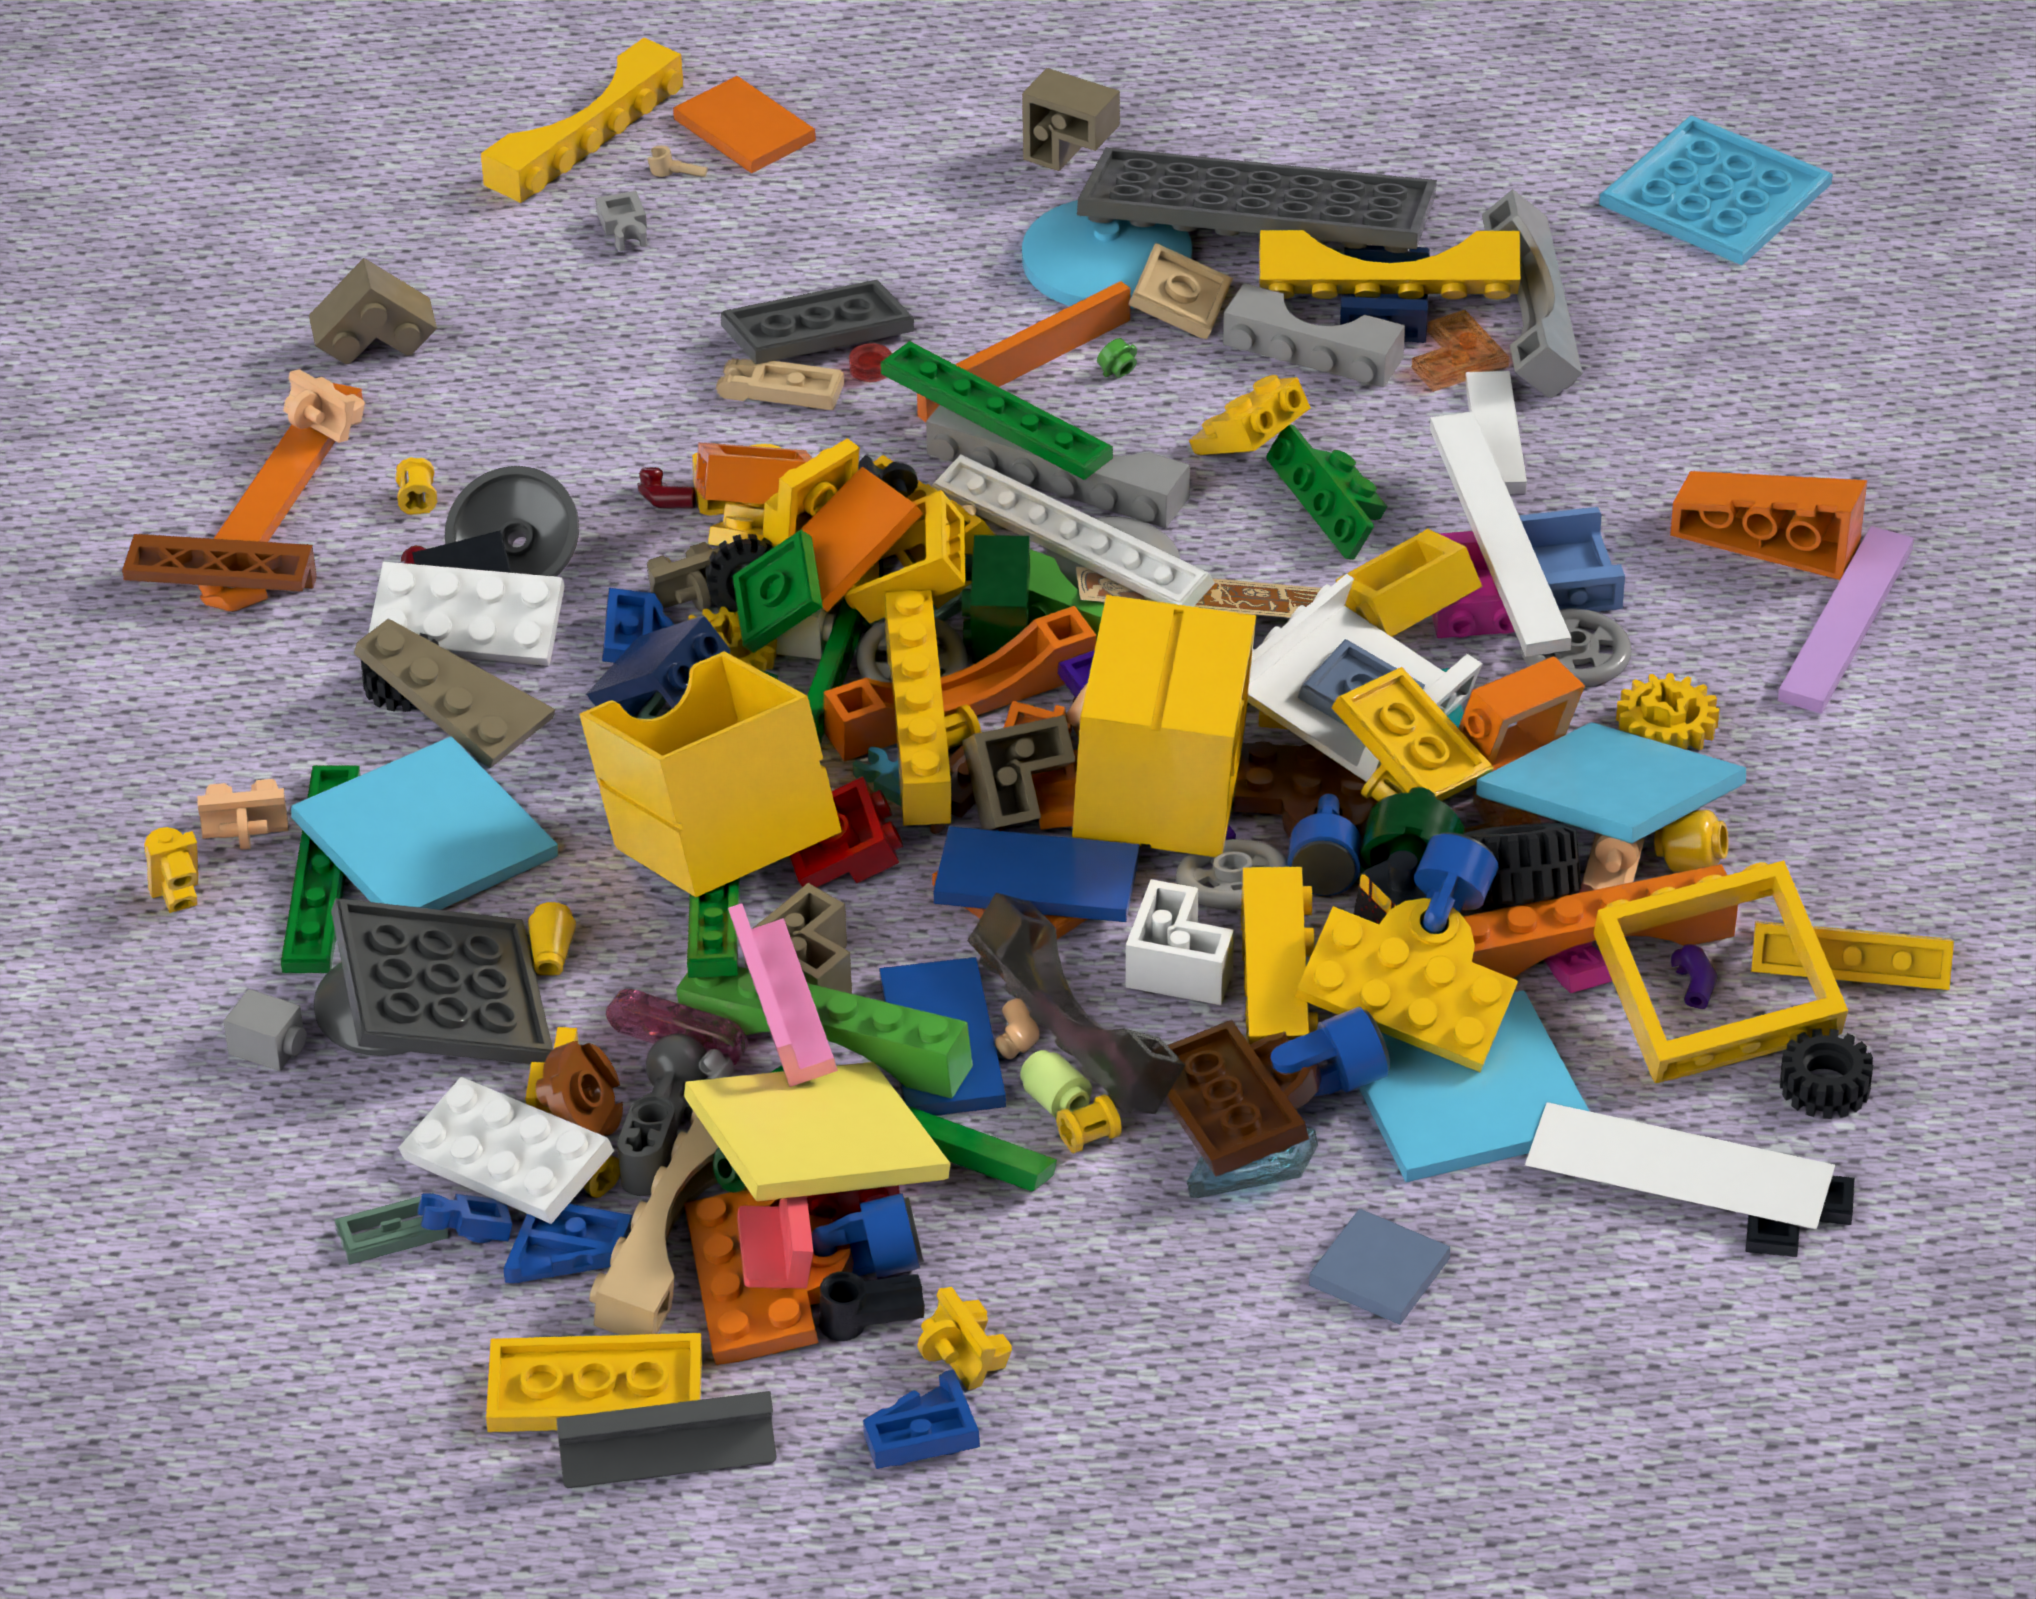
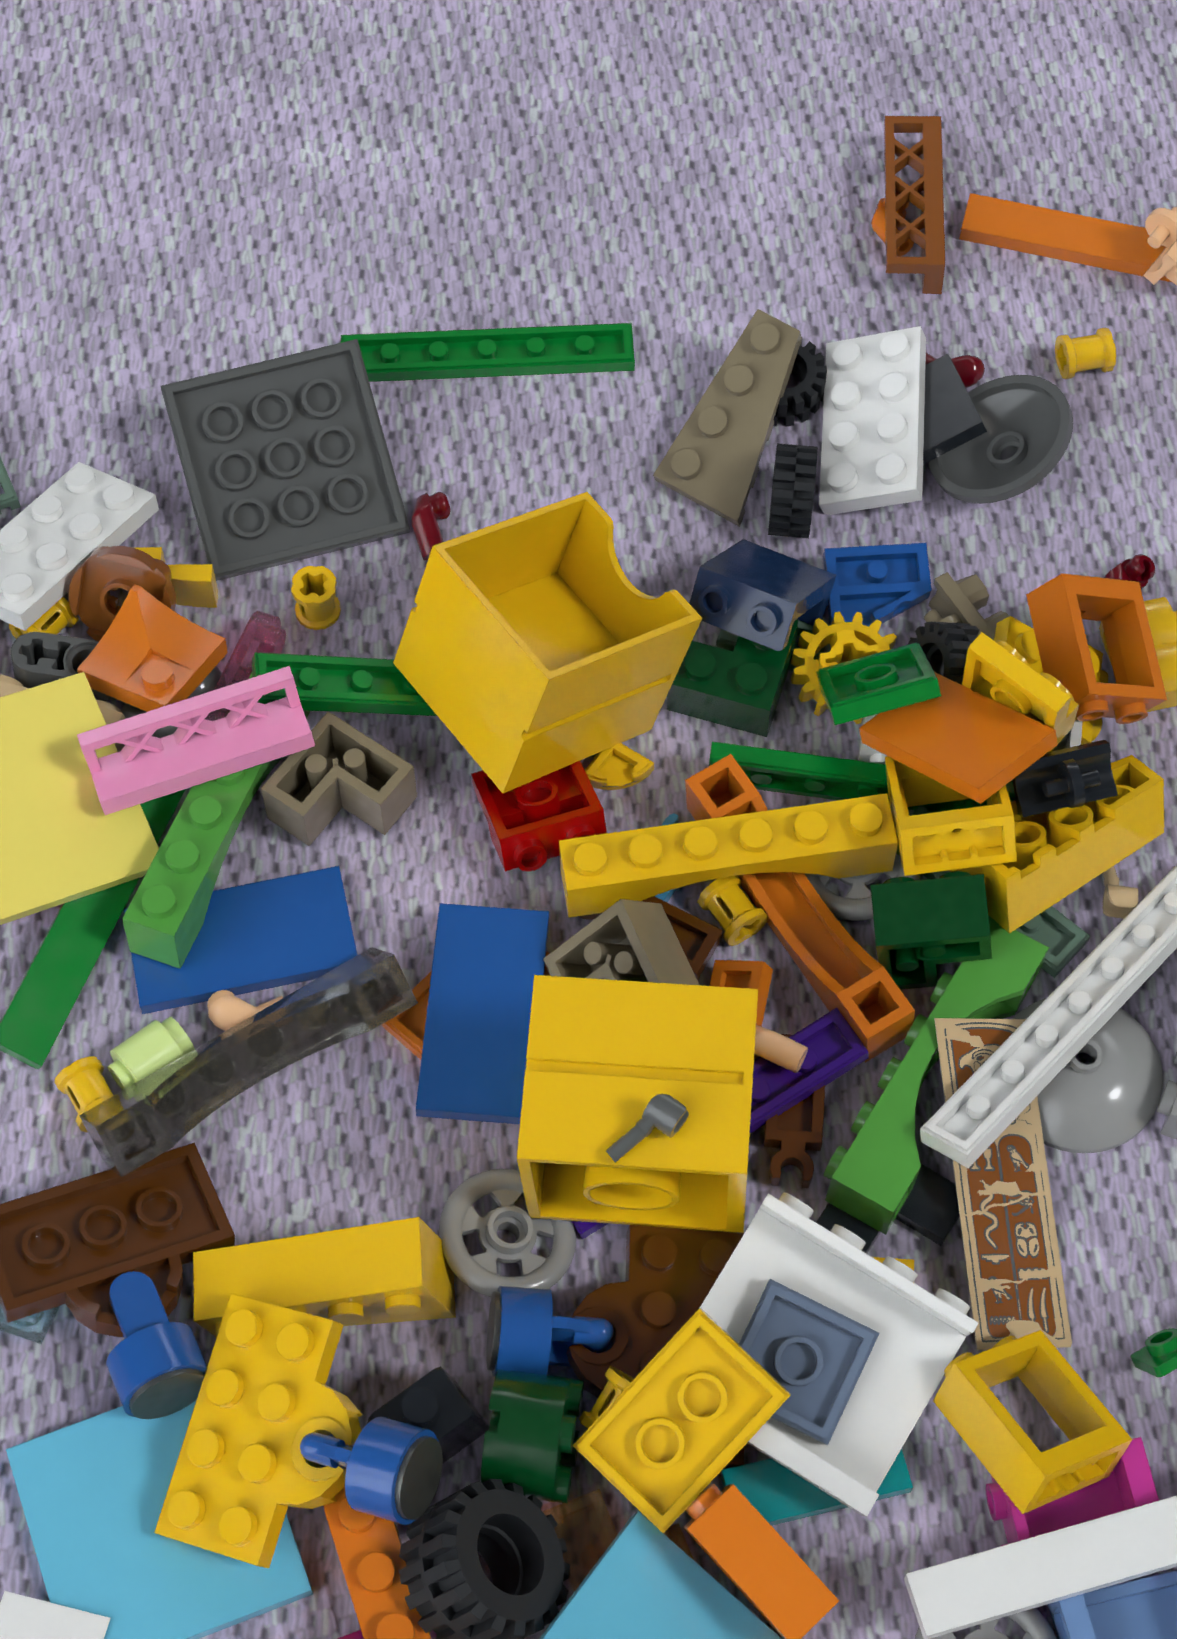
camera: 85 degrees right, 20 degrees up
(172, 867) = (442, 222): yellow hips -> none
(242, 813) = (541, 273): light nougat hips -> none
(264, 1030) = (235, 330): light grey brick -> none
(424, 829) = (531, 421): medium azure tile -> none
(513, 905) = (424, 520): none -> dark red arm
(549, 640) = (793, 490): none -> black tyre
(550, 936) = (378, 555): yellow cone -> none
(590, 978) = (315, 597): none -> yellow bush
(662, 1055) = (151, 654): none -> orange plate
(1173, 951) = (355, 1153): white brick -> none
(1211, 646) = (660, 1113): none -> dark grey hand

